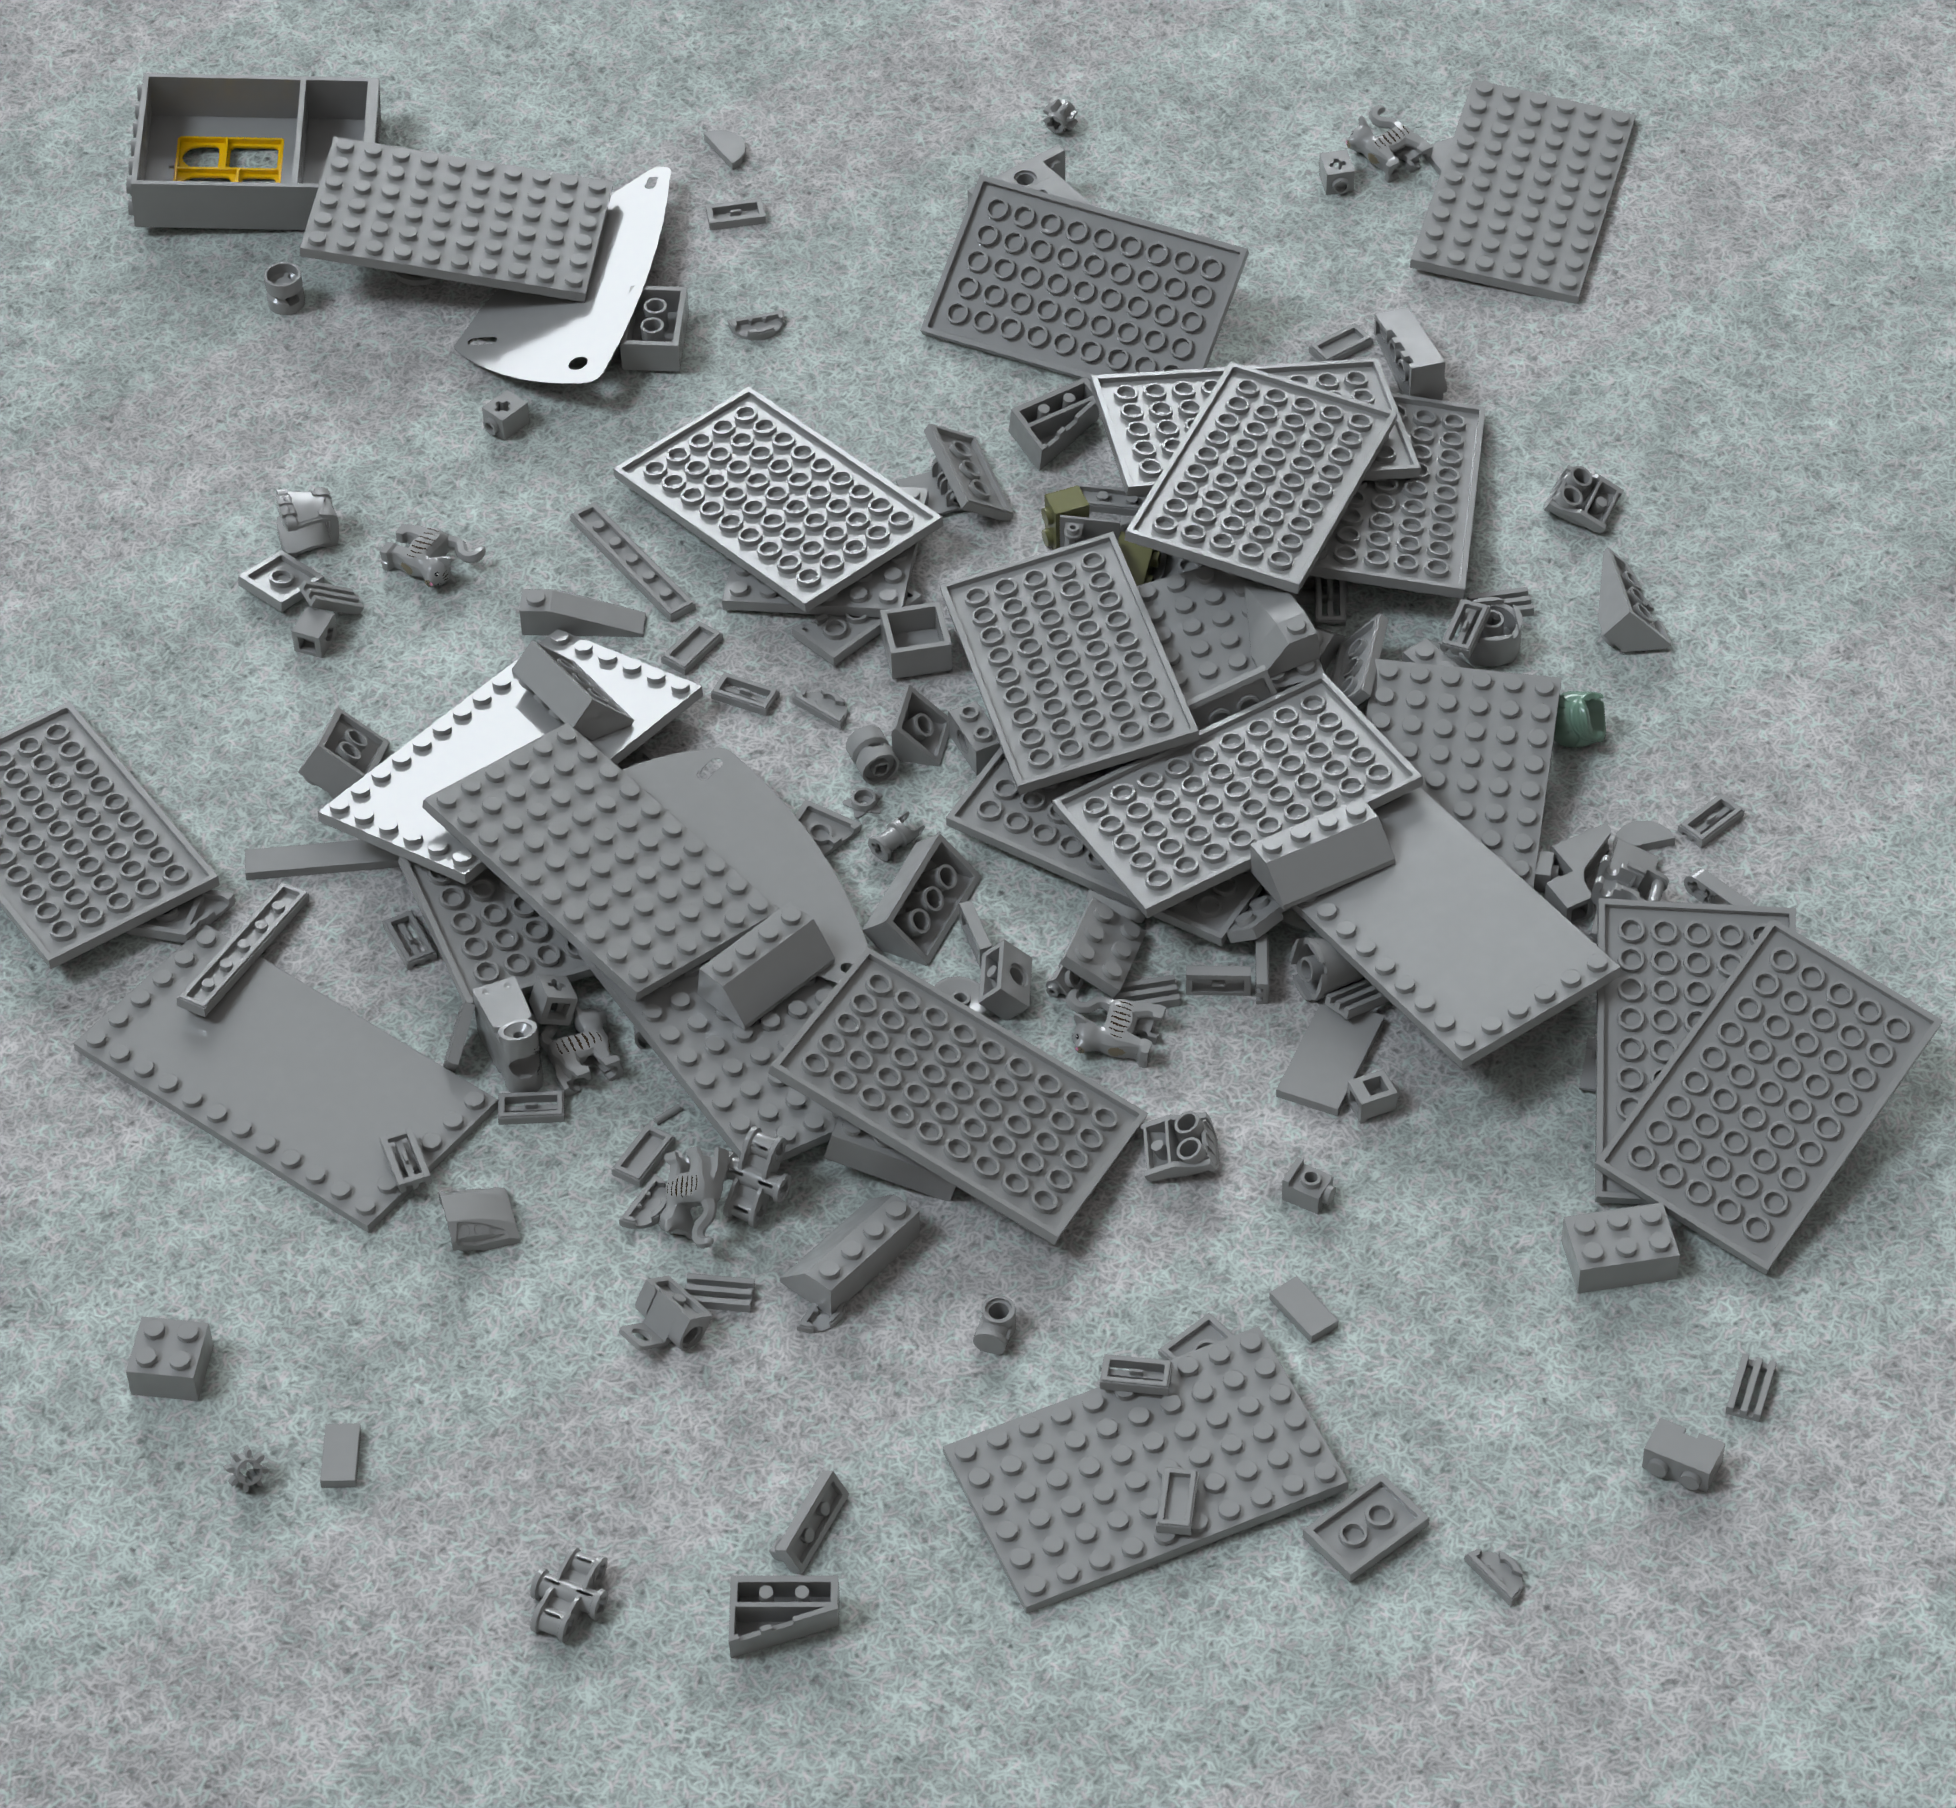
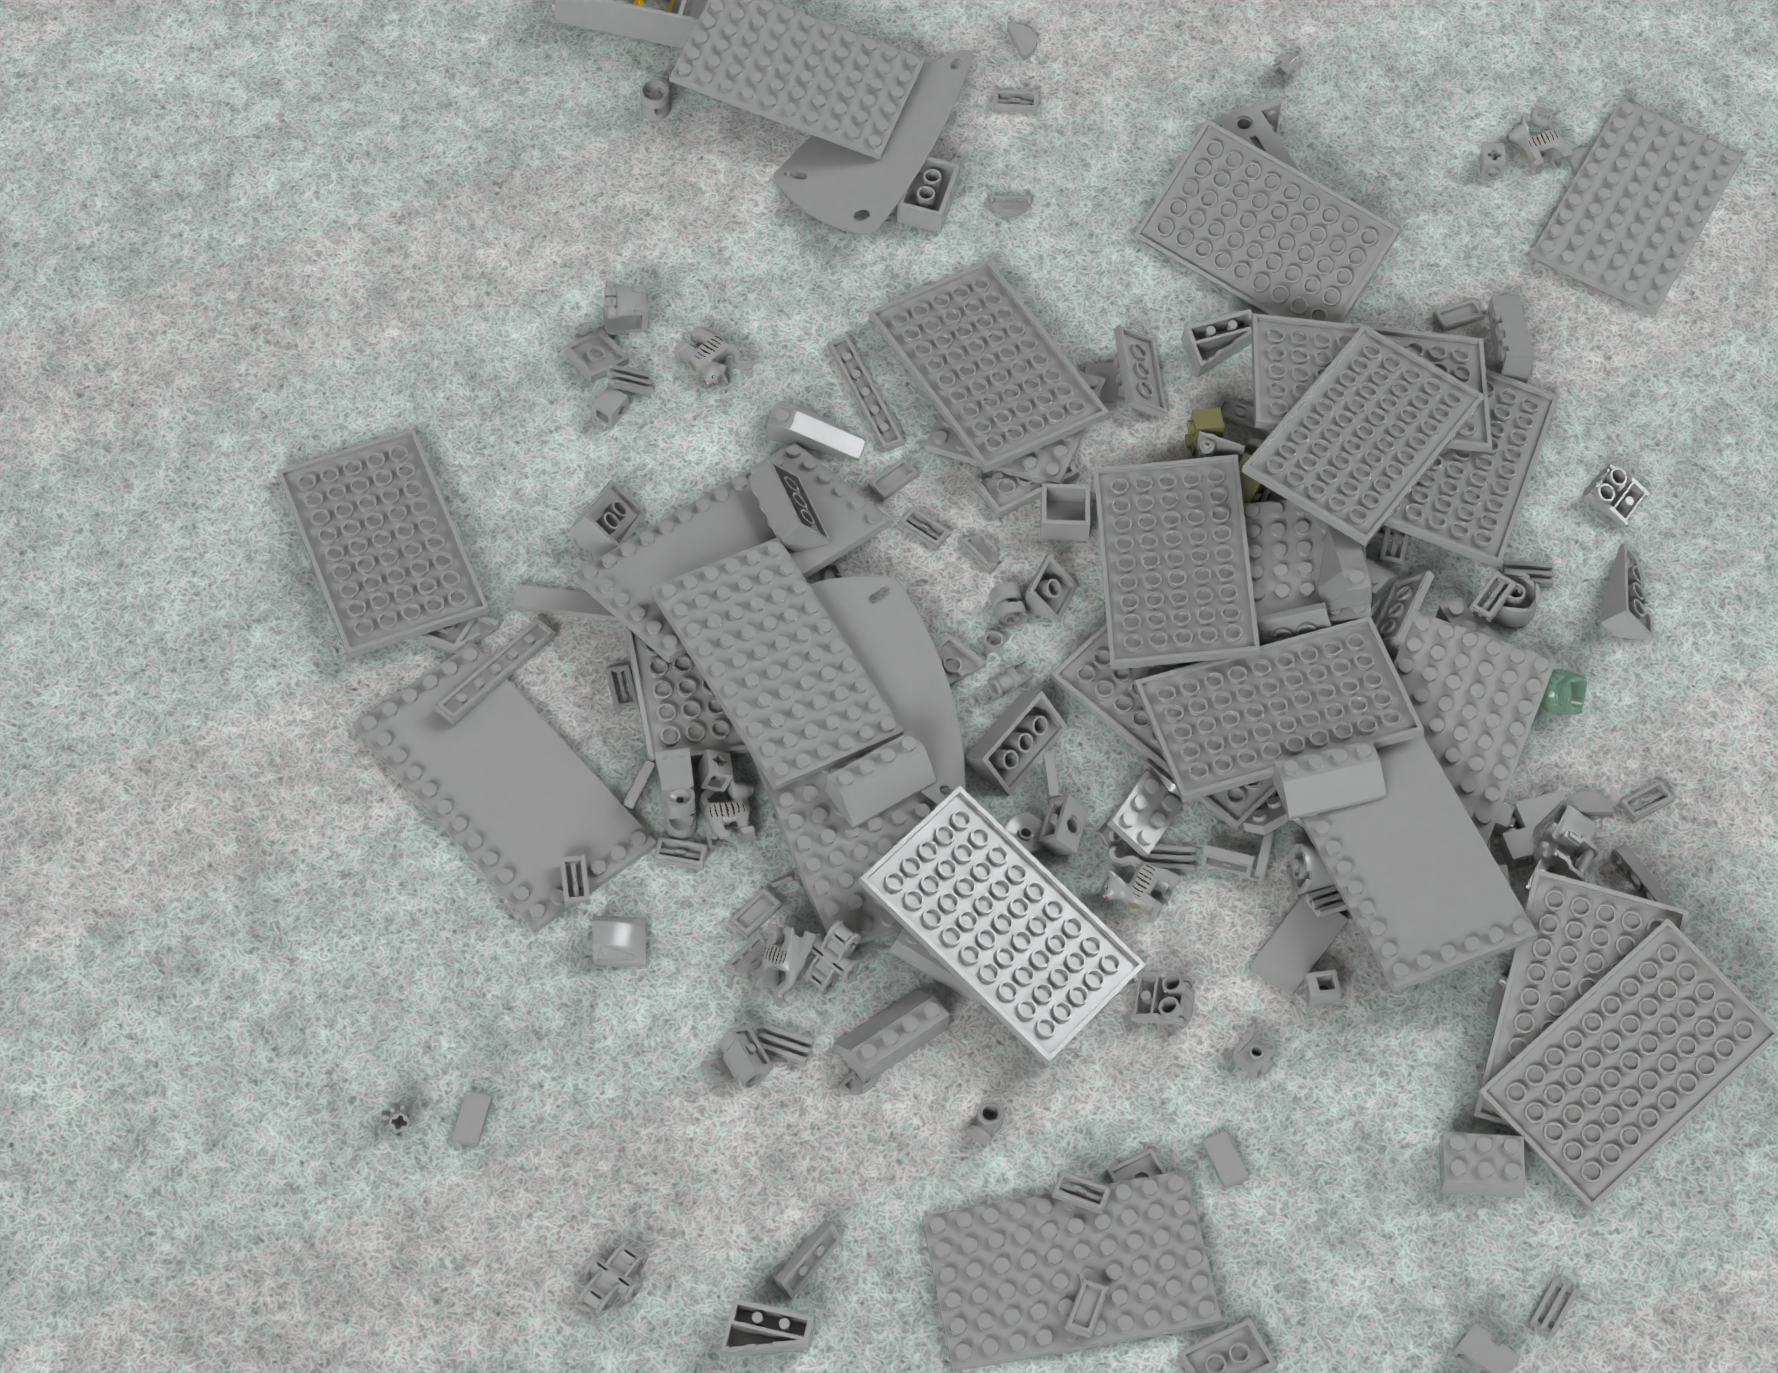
camera: 10 degrees right, 10 degrees up
(169, 1358) = (363, 1010): light grey piece -> none
(505, 415) = (797, 245): light grey brick -> none
(973, 735) = (1090, 605): light grey brick -> none

